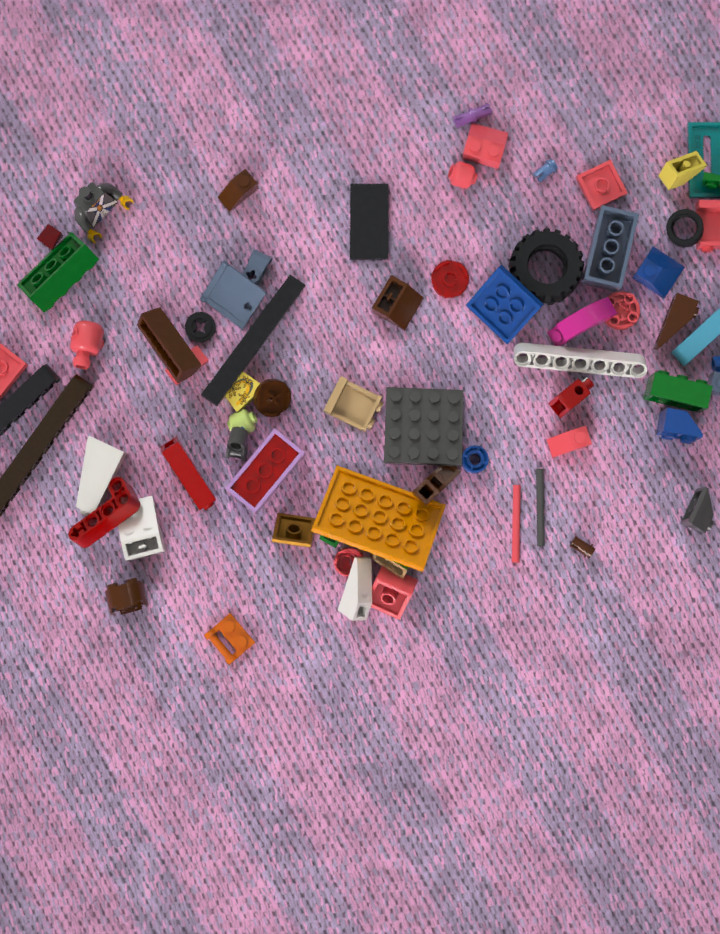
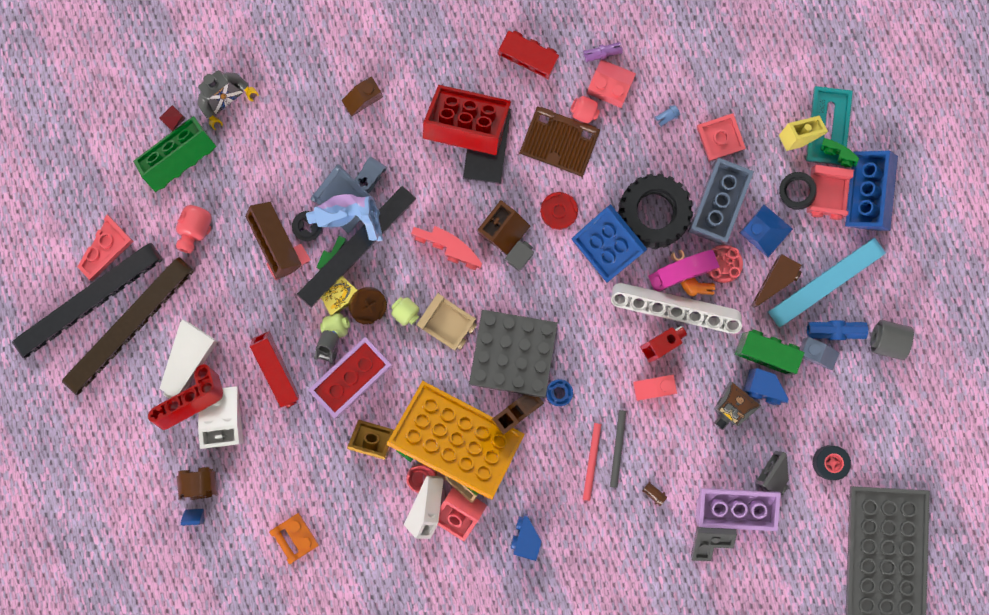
camera: 10 degrees right, 0 degrees up
(126, 631) = (192, 517): none -> blue slope
(224, 353) = (326, 256): none -> green slope
(235, 304) = (343, 208): none -> light blue hips
(310, 398) = (405, 311): none -> yellowish green head
(345, 200) = (466, 119): none -> red slope
(352, 329) = (456, 249): none -> coral slope
(399, 127) = (528, 54): none -> red brick
(417, 328) = (519, 255): none -> dark grey brick
(441, 210) = (559, 141): none -> reddish brown window
(463, 607) = (527, 541): none -> blue slope
(592, 336) = (692, 286): none -> orange arm
(641, 583) = (709, 538): none -> dark grey plate
(650, 450) = (734, 406): none -> torso
(667, 550) = (738, 509): none -> lavender slope

